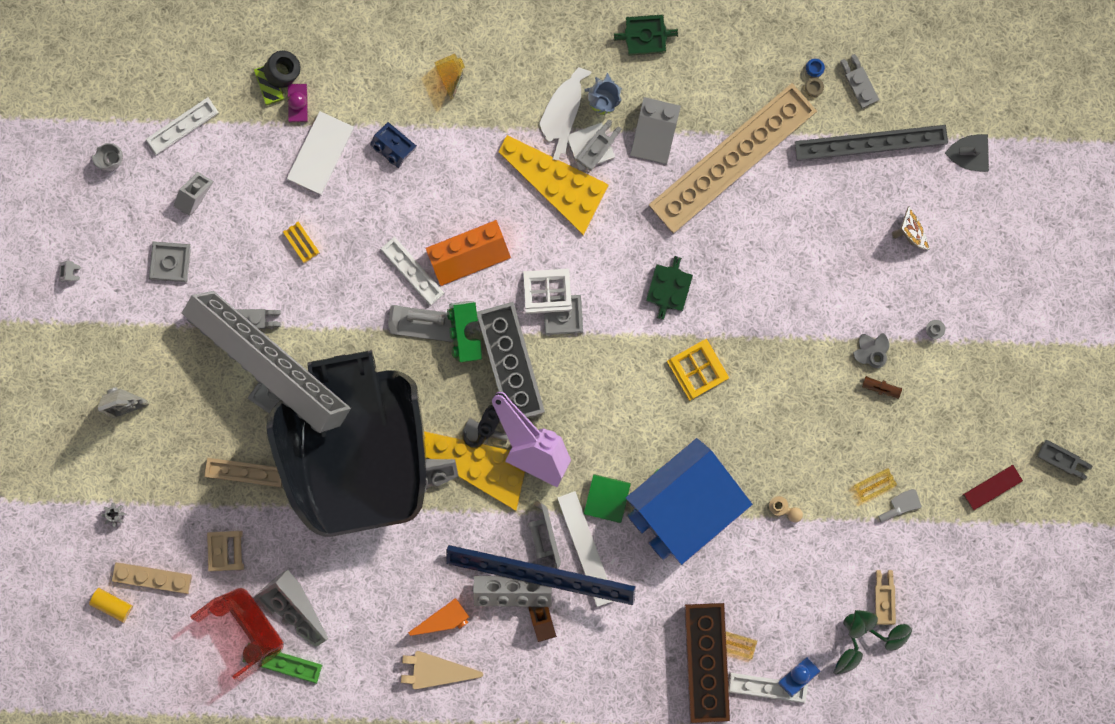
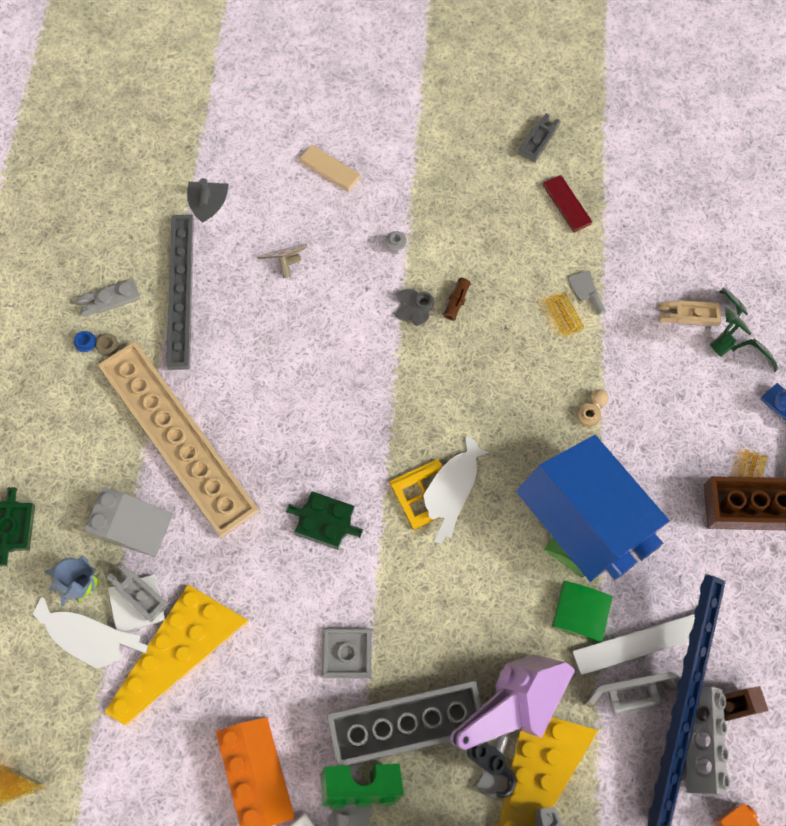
camera: 90 degrees left, 15 degrees down
(547, 306) = (337, 670): white piece -> none
(704, 390) = (451, 488): none -> white sticker
(1012, 263) = (330, 168): none -> tan tile

